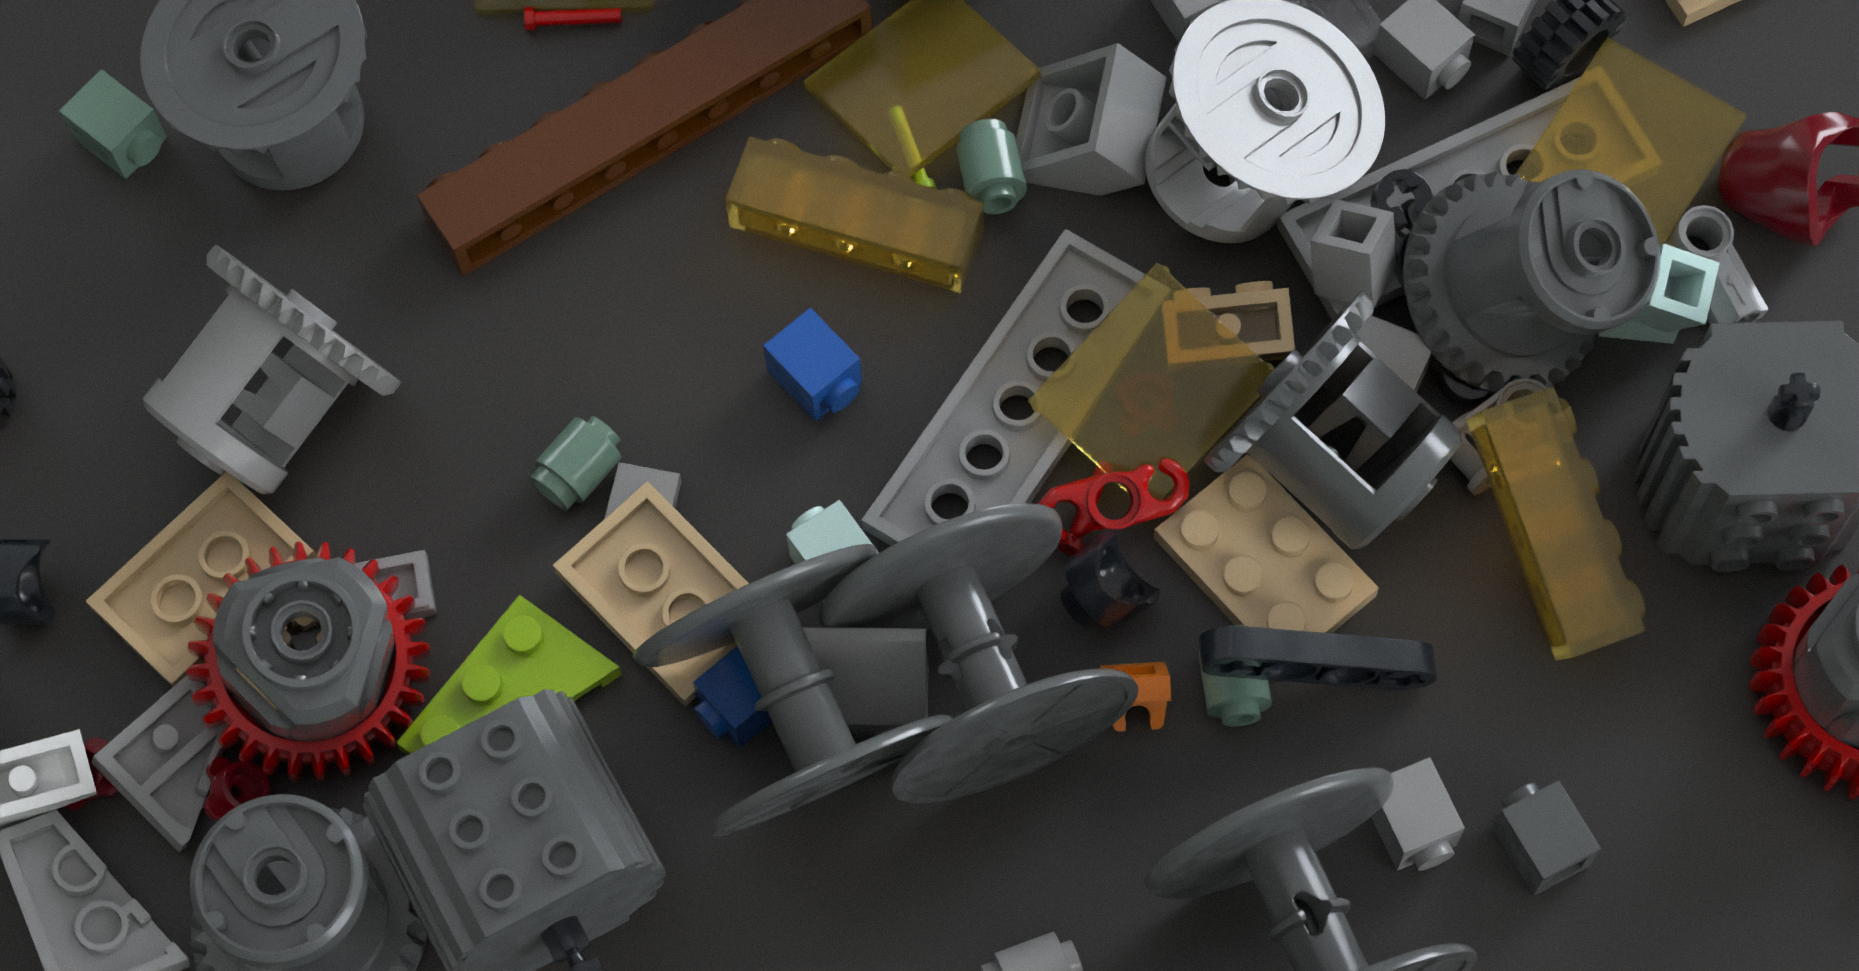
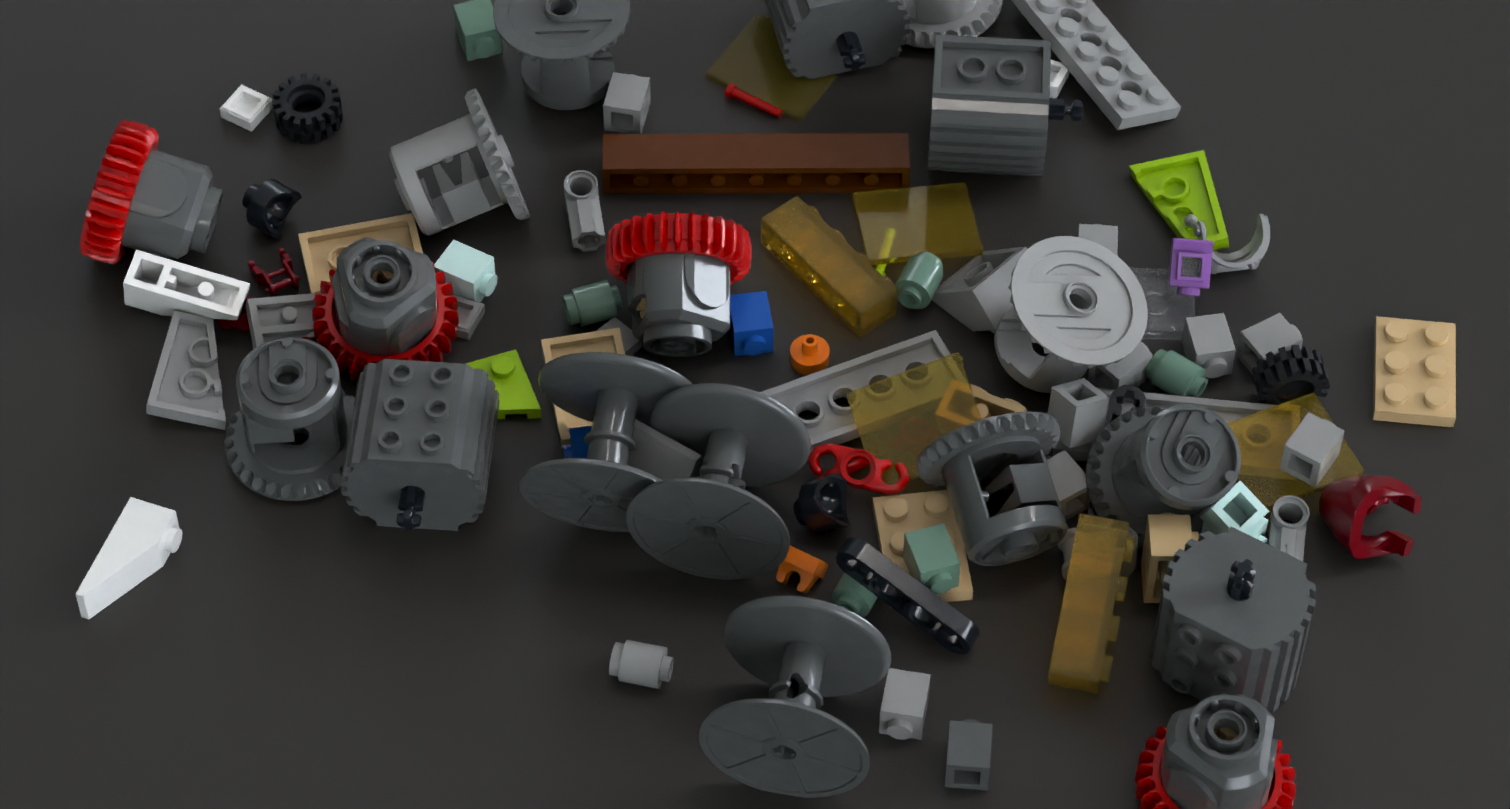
camera: 30 degrees right, 15 degrees down
(75, 696) = (264, 279): none -> dark red piece
(369, 518) = (468, 271): none -> light aqua brick
(407, 122) = (626, 103): none -> light grey brick
(467, 327) = (584, 210): none -> light grey piece
(692, 369) = (678, 277): none -> piece
(917, 361) = (809, 354): none -> orange tile
(1316, 586) = (932, 558): none -> sand green brick
(1419, 111) = (1176, 374): none -> sand green brick
(1608, 390) = (1162, 539): none -> tan brick
(1678, 127) = (1312, 449): none -> light grey brick

